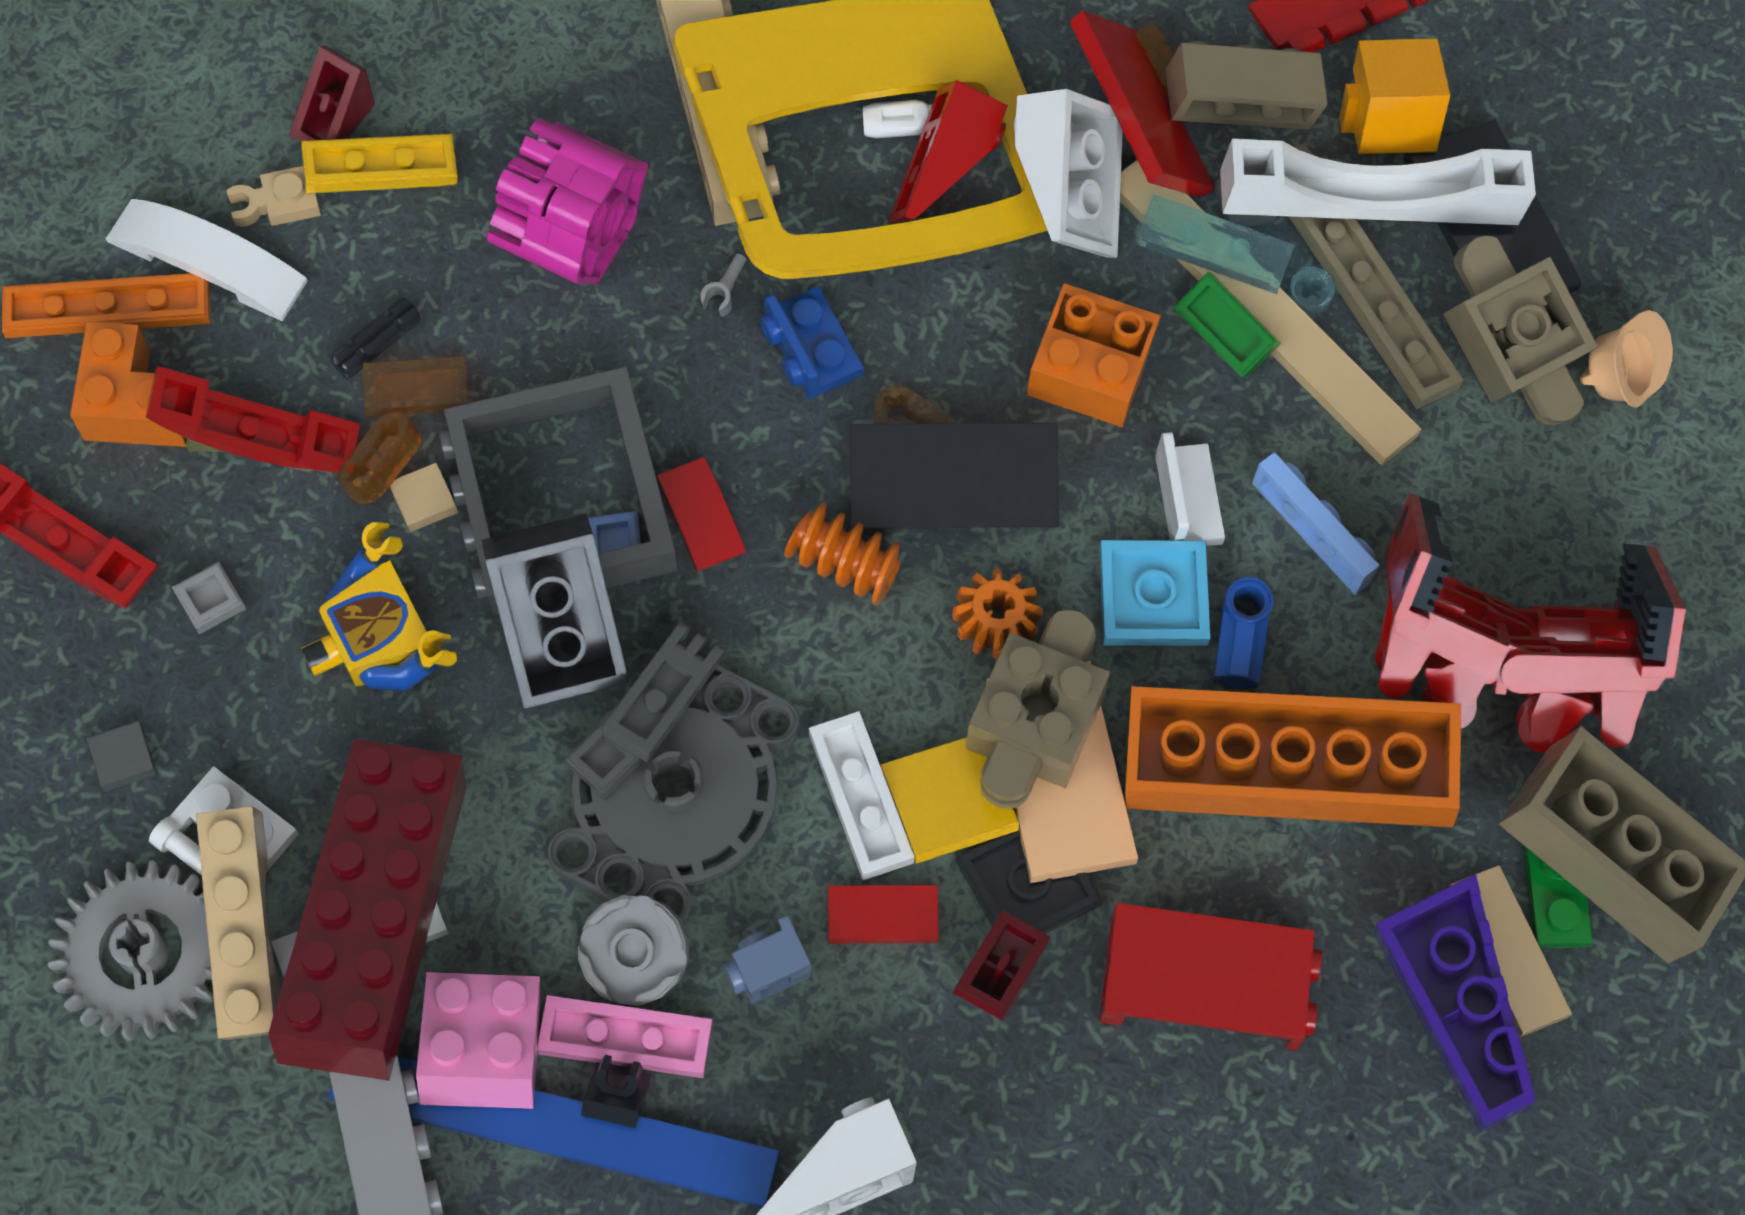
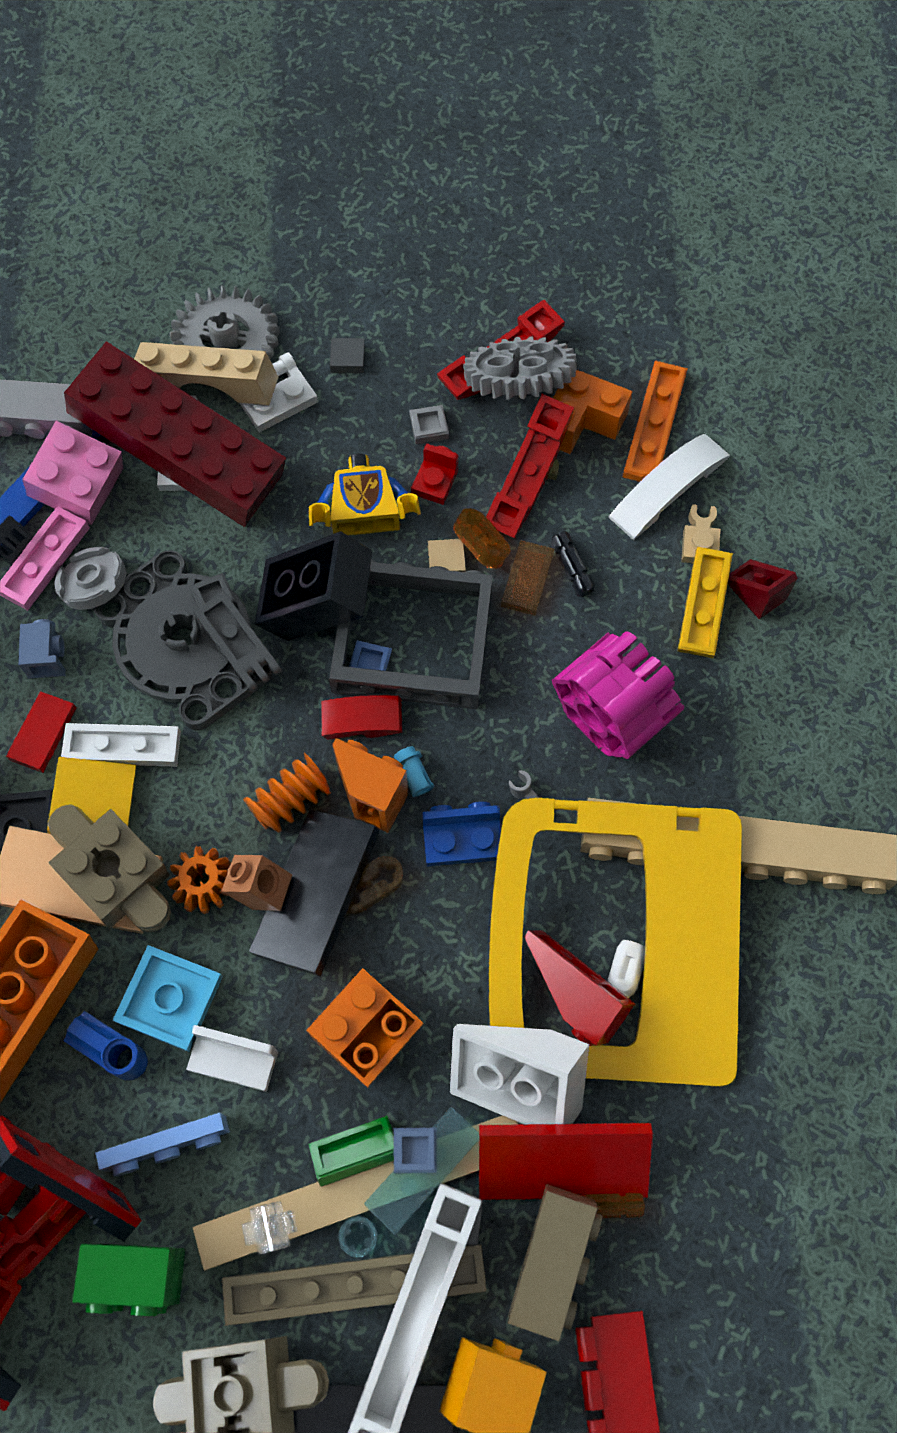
camera: 115 degrees right, 0 degrees up
(112, 504) = (520, 367): none -> light grey gear
(295, 555) = (436, 474): none -> red bracket
(742, 433) = (417, 776): none -> medium azure pin
(798, 449) = (372, 784): none -> orange slope
(976, 537) = (257, 882): none -> nougat brick
(1202, 248) = (415, 1150): none -> sand blue tile
(1351, 363) = (269, 1227): none -> clear gear
(1471, 478) = (128, 1276): none -> green brick

